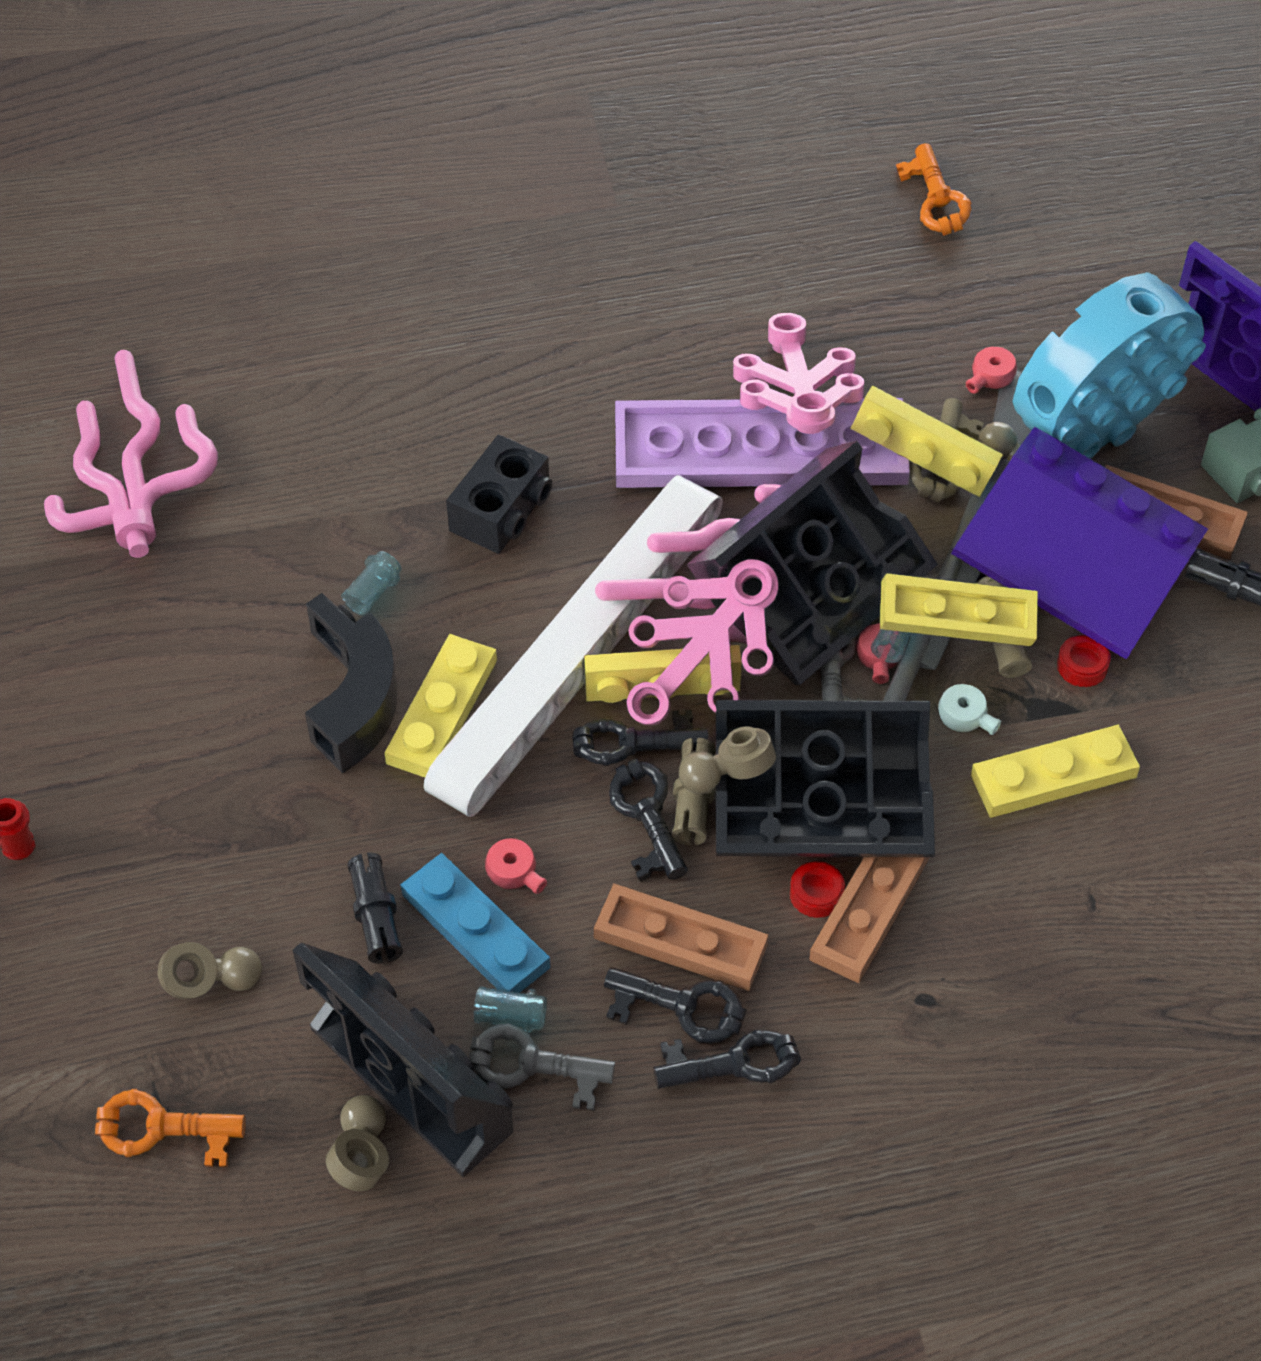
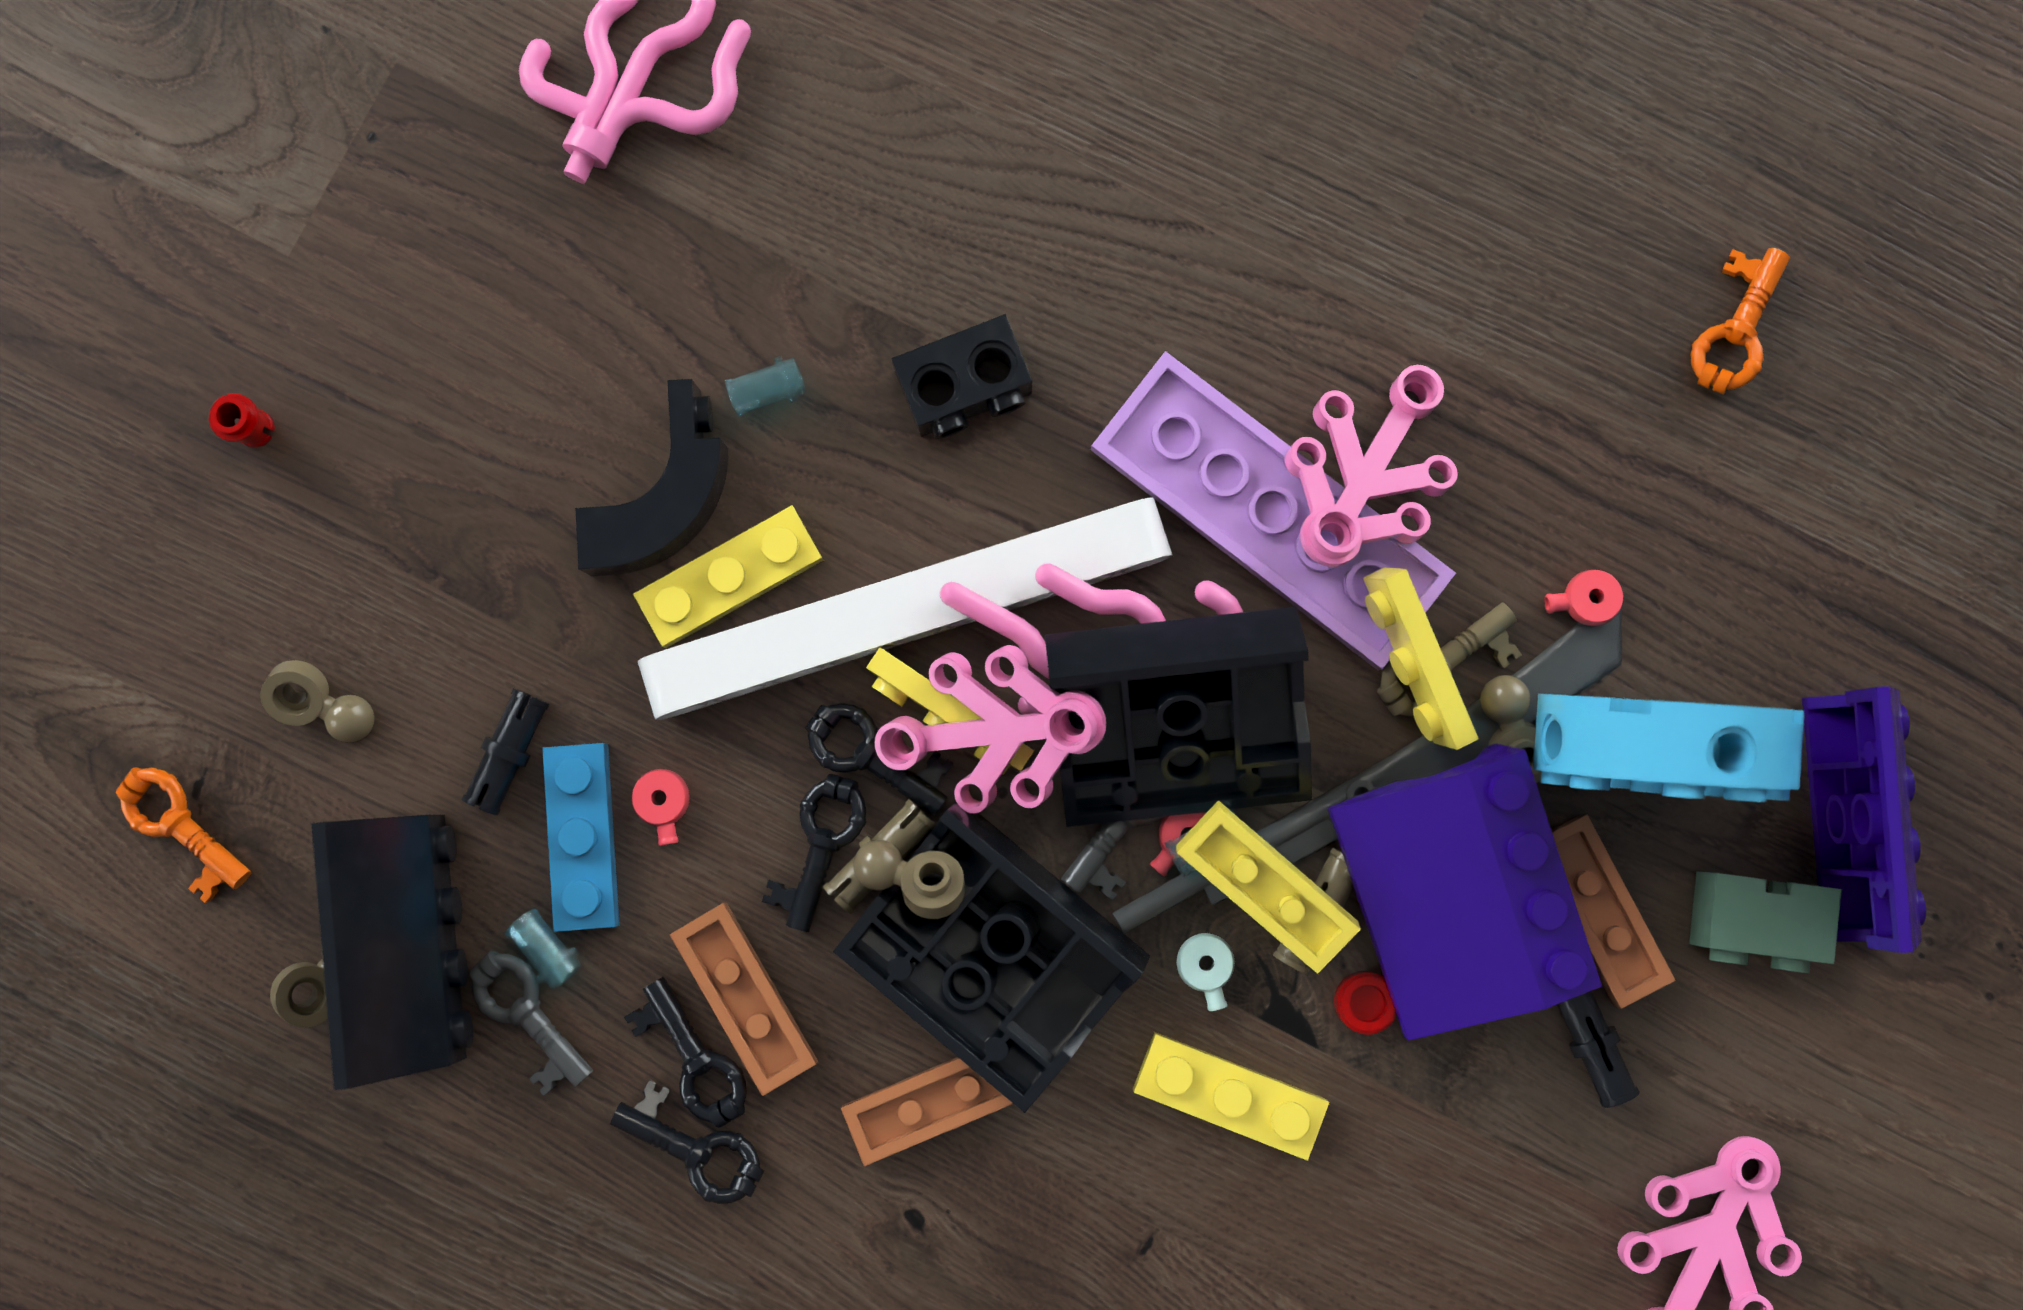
camera: 40 degrees right, 30 degrees up
(816, 888) = (906, 1044): red tile -> none

